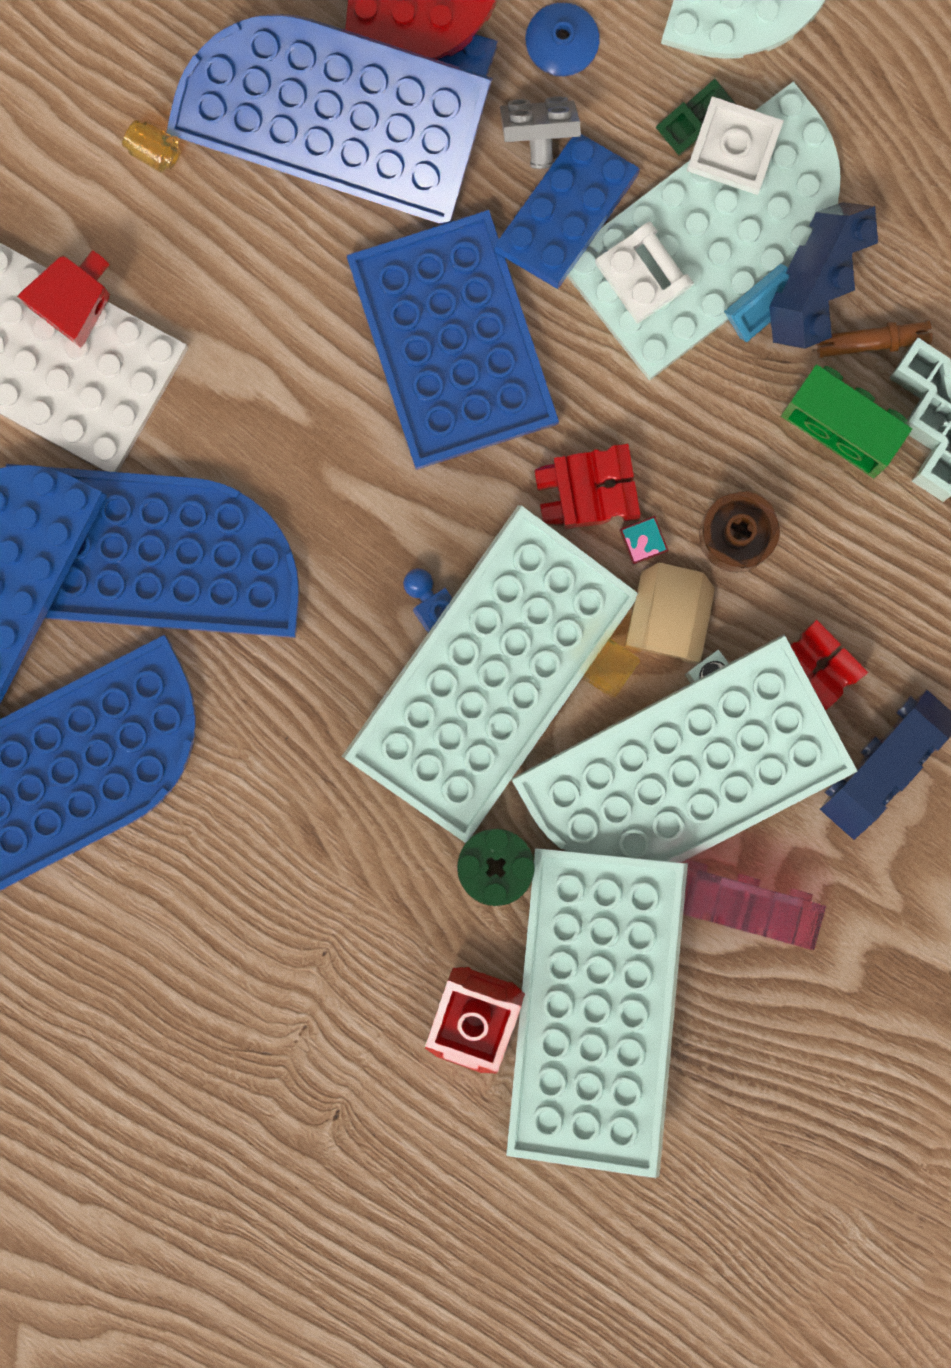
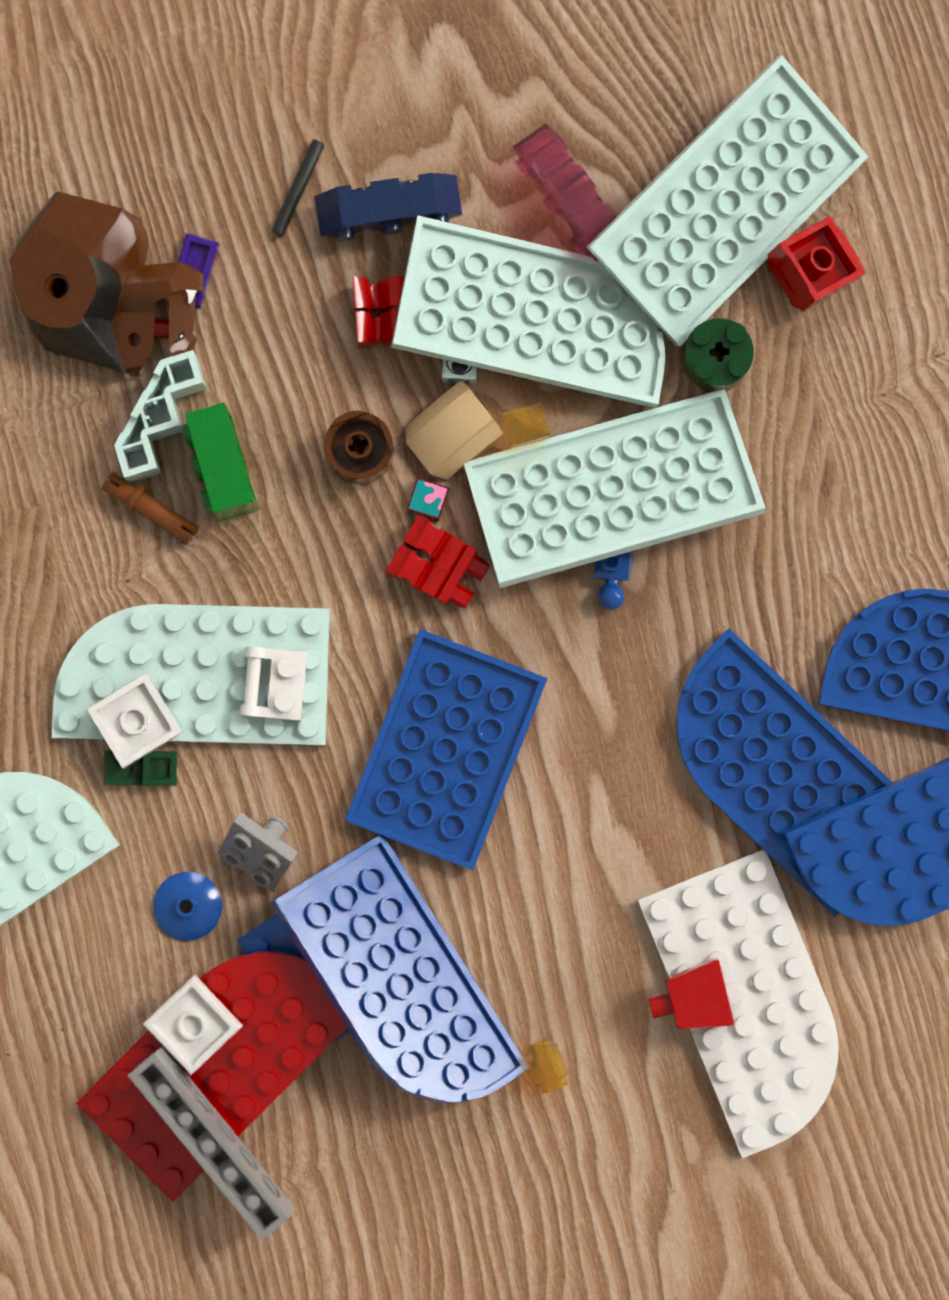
camera: 140 degrees left, 0 degrees up
(566, 210) = (290, 774): blue plate -> none
(752, 310) = (205, 596): dark azure tile -> none
(821, 273) = (150, 580): dark blue brick -> none

